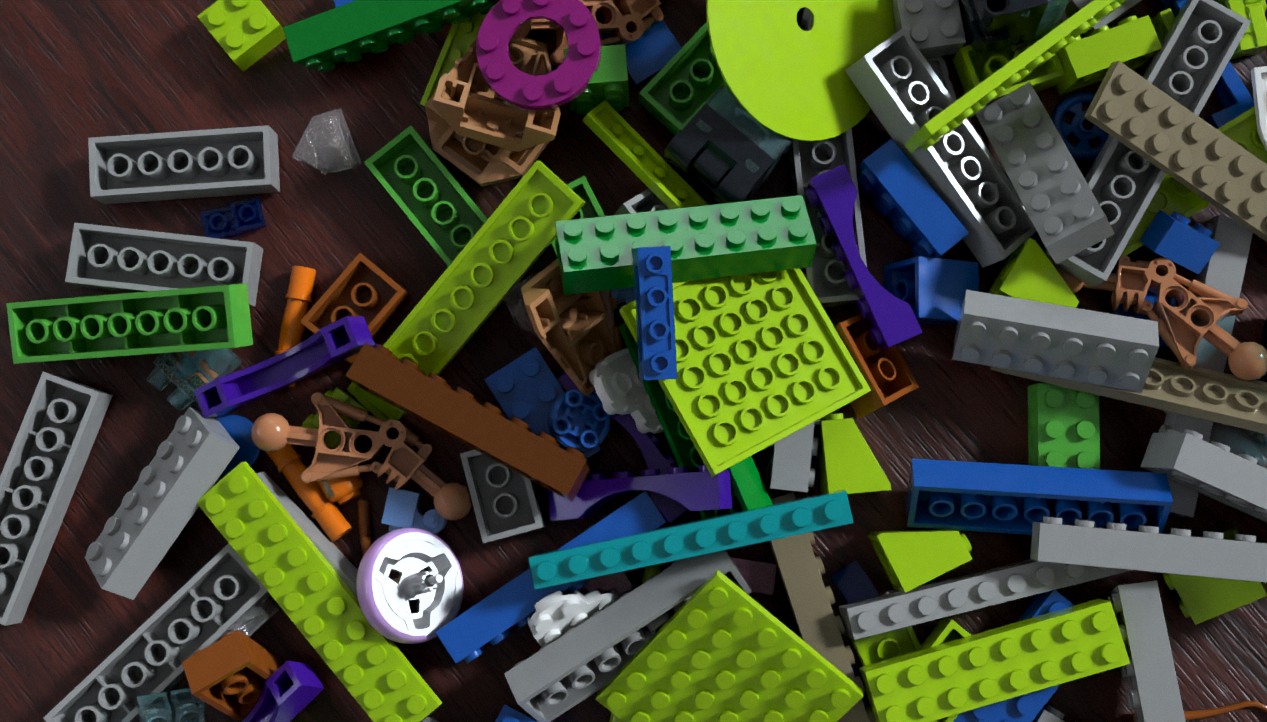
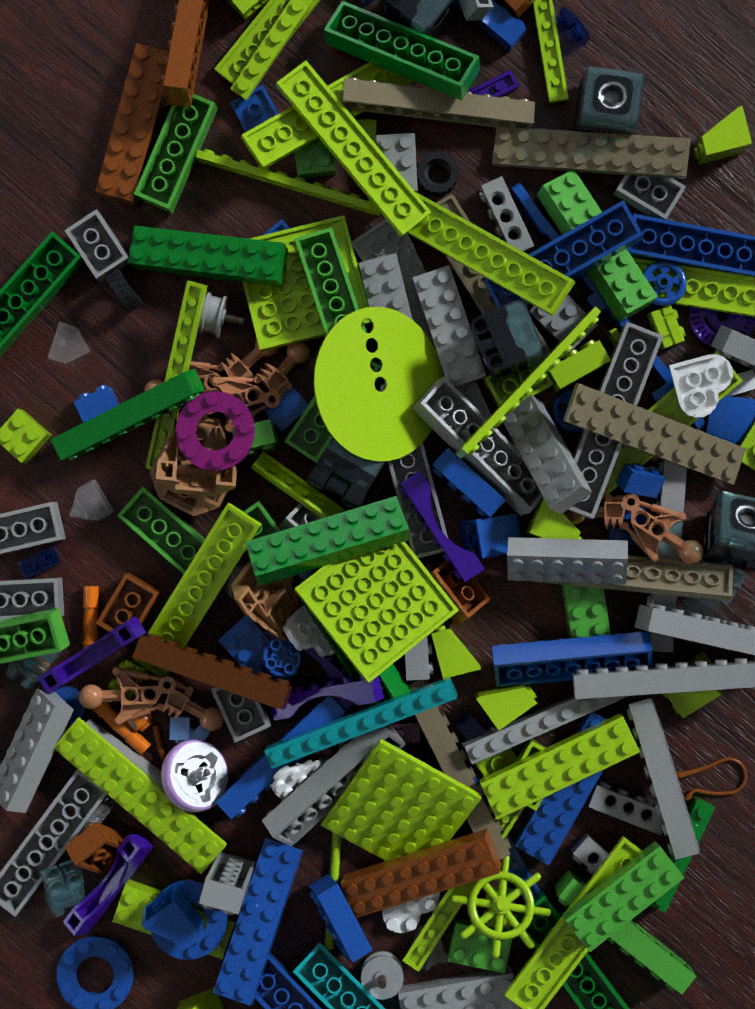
camera: 15 degrees left, 5 degrees up
(654, 313) = (315, 592): blue brick -> none

